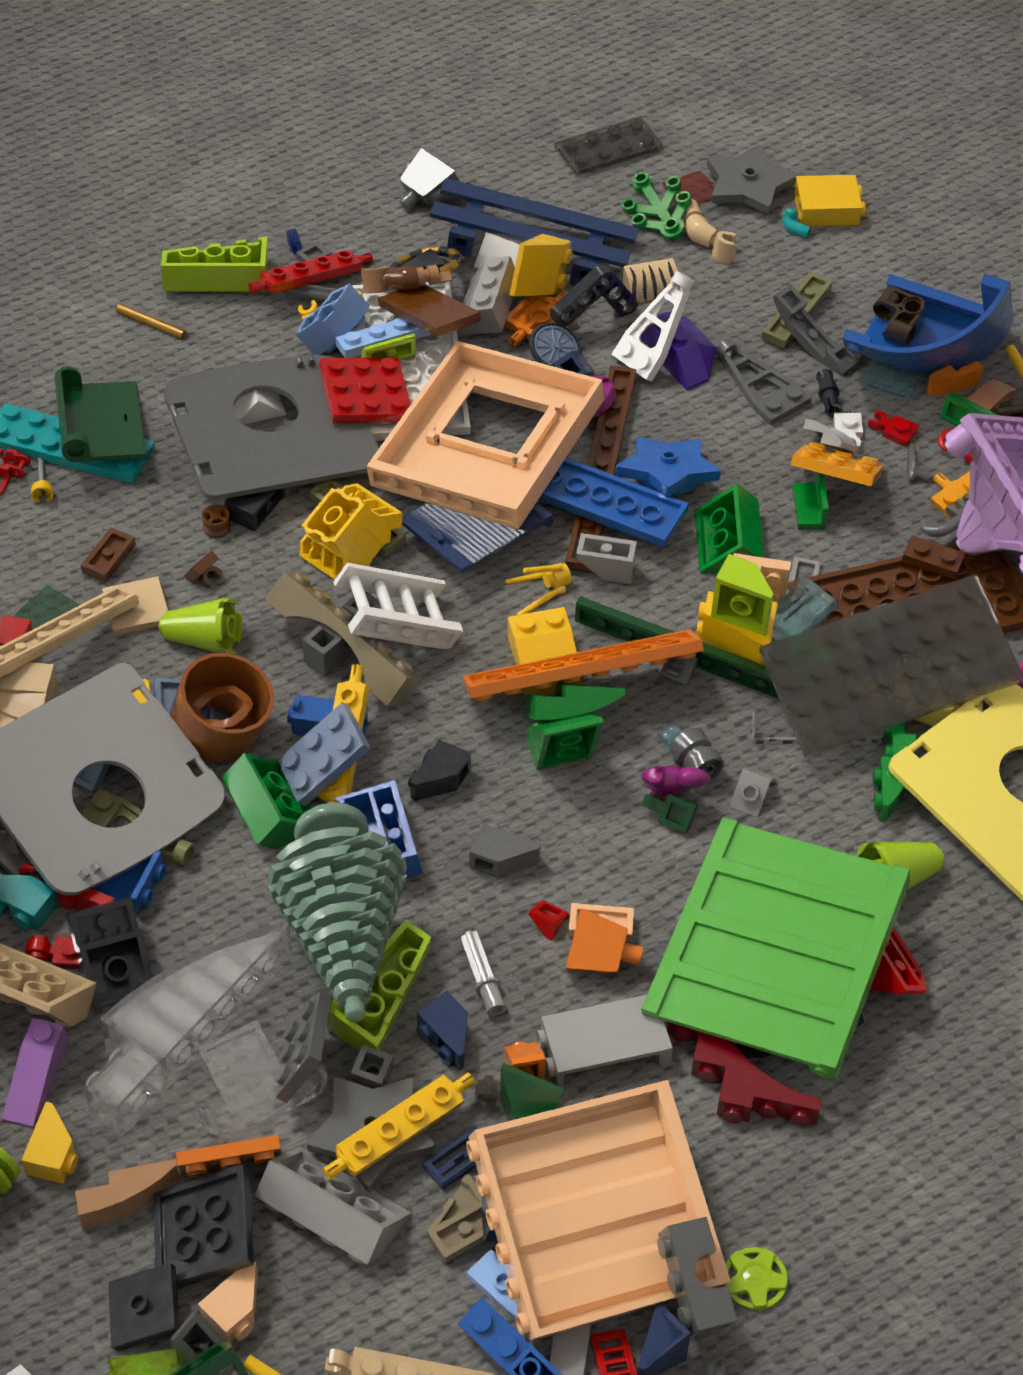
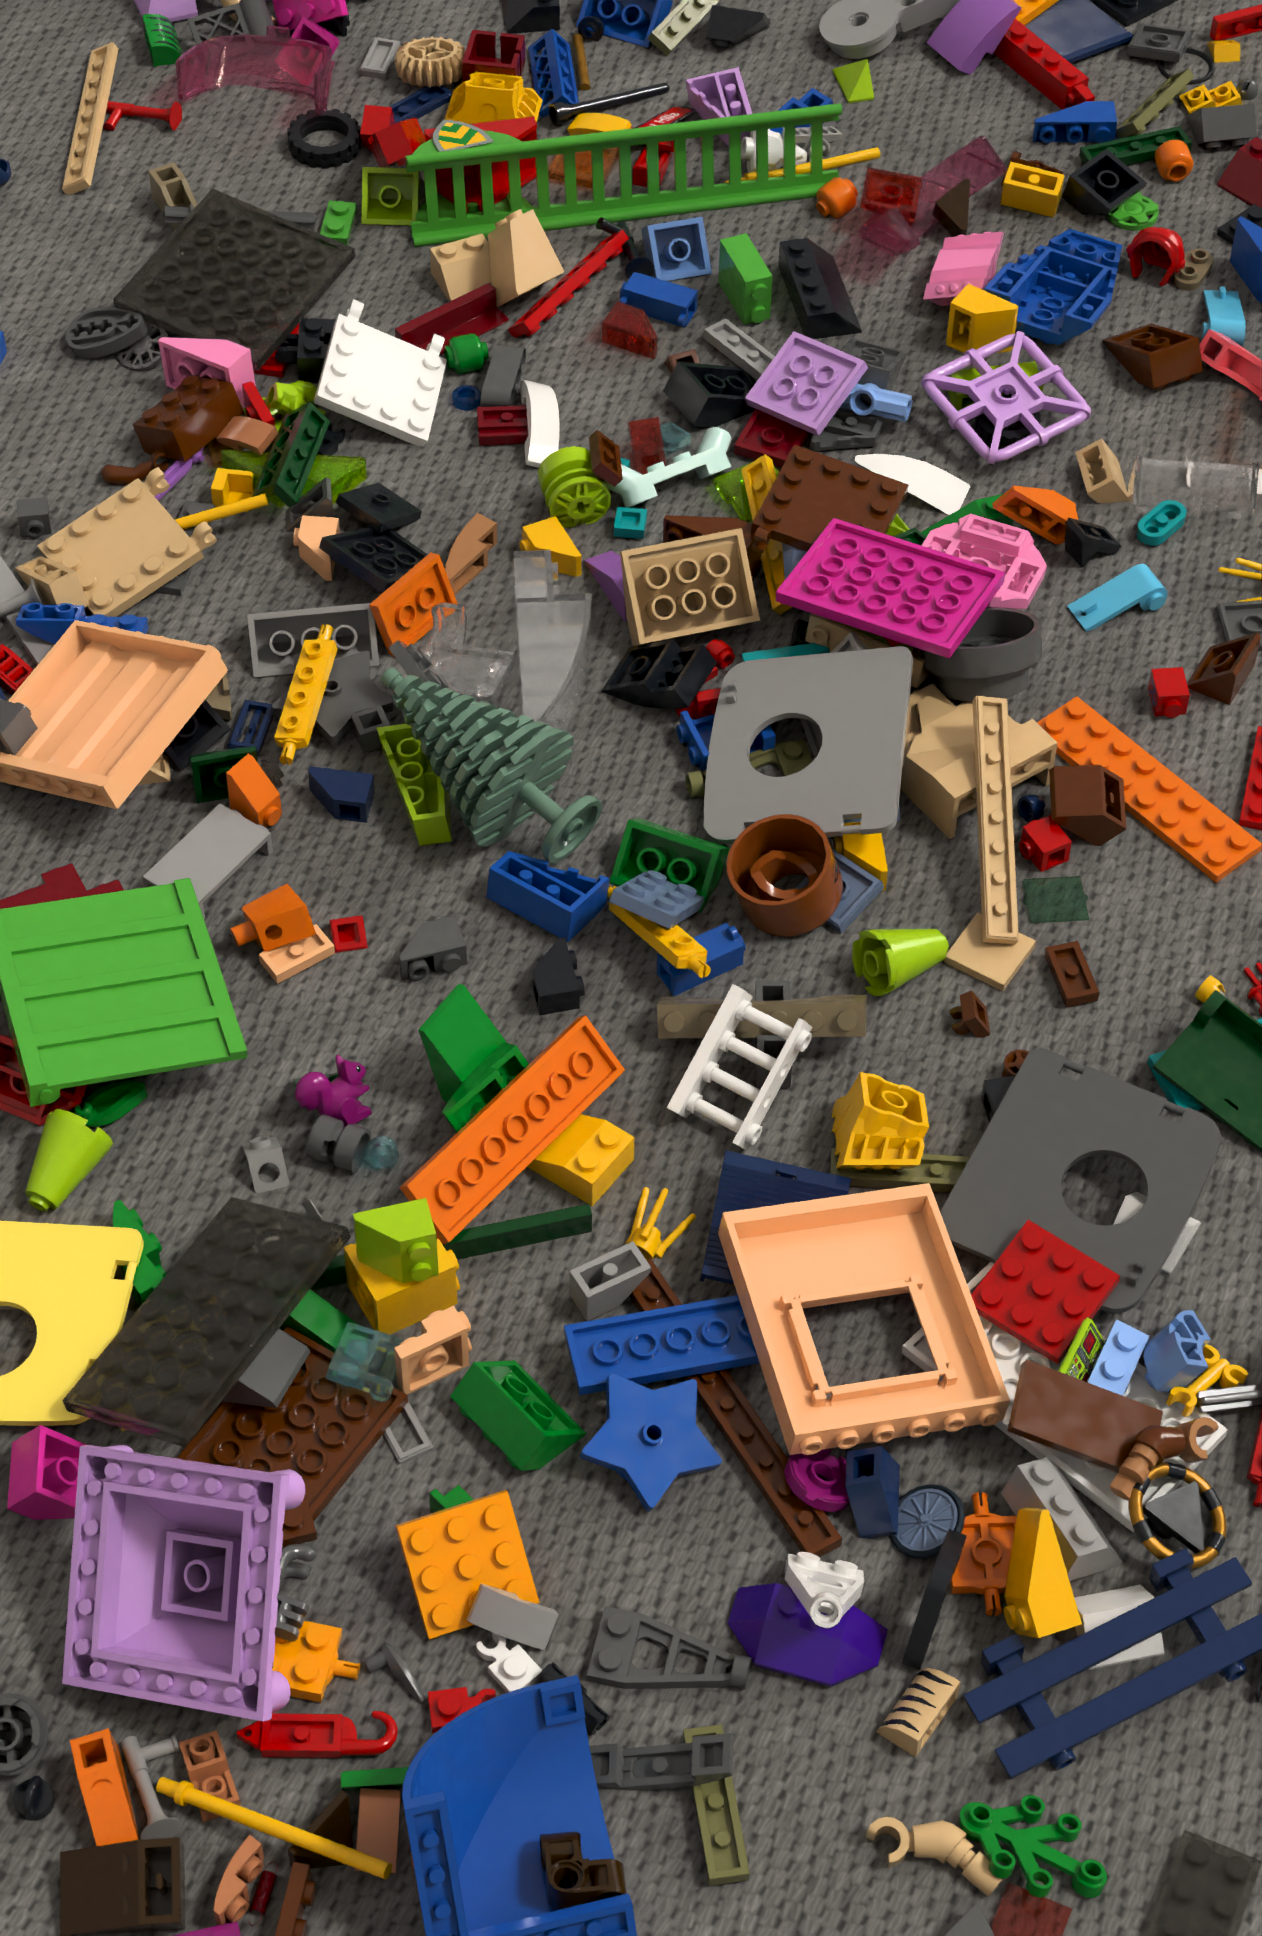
camera: 140 degrees right, 0 degrees up
(486, 984) = (346, 849): light grey axle -> none

